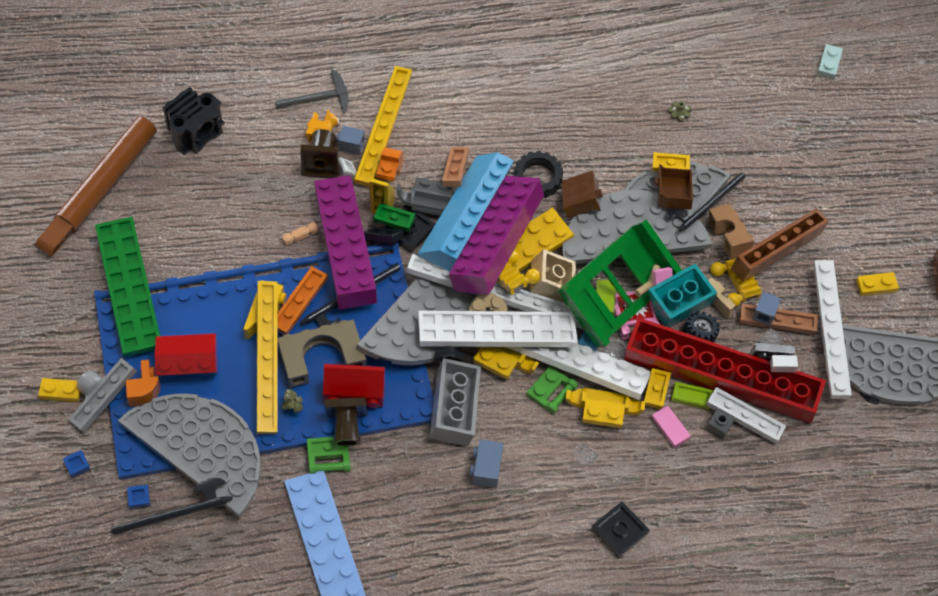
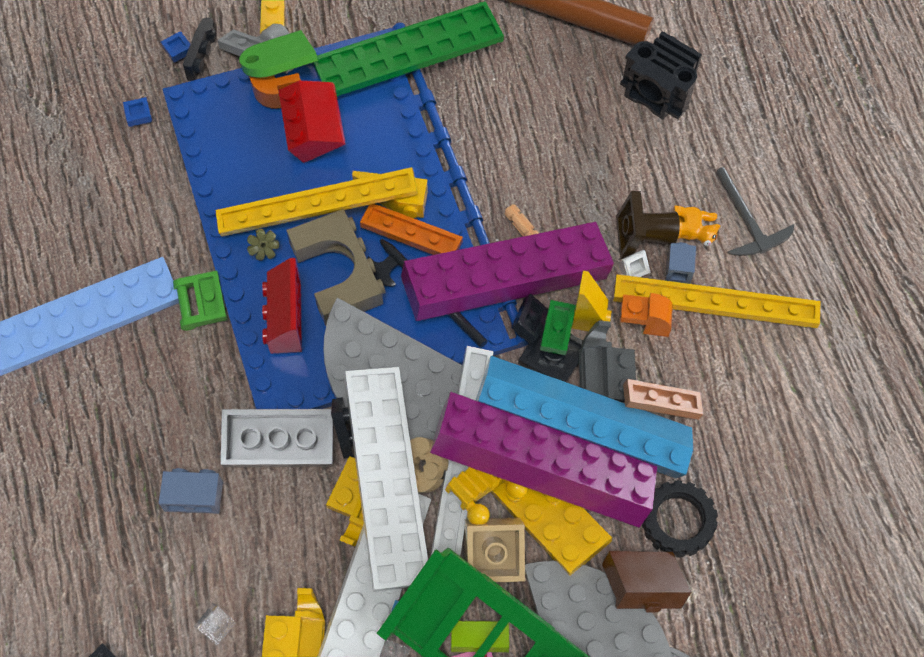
camera: 85 degrees right, 5 degrees up
(97, 450) = (199, 47): none -> black hinge
(121, 369) = (277, 55): none -> bright green tile
(201, 442) = (198, 161): light grey plate -> none
(207, 486) = (138, 167): black piece -> none
(346, 419) = (240, 302): dark brown plant -> none
(547, 385) = (323, 563): bright green plate -> none

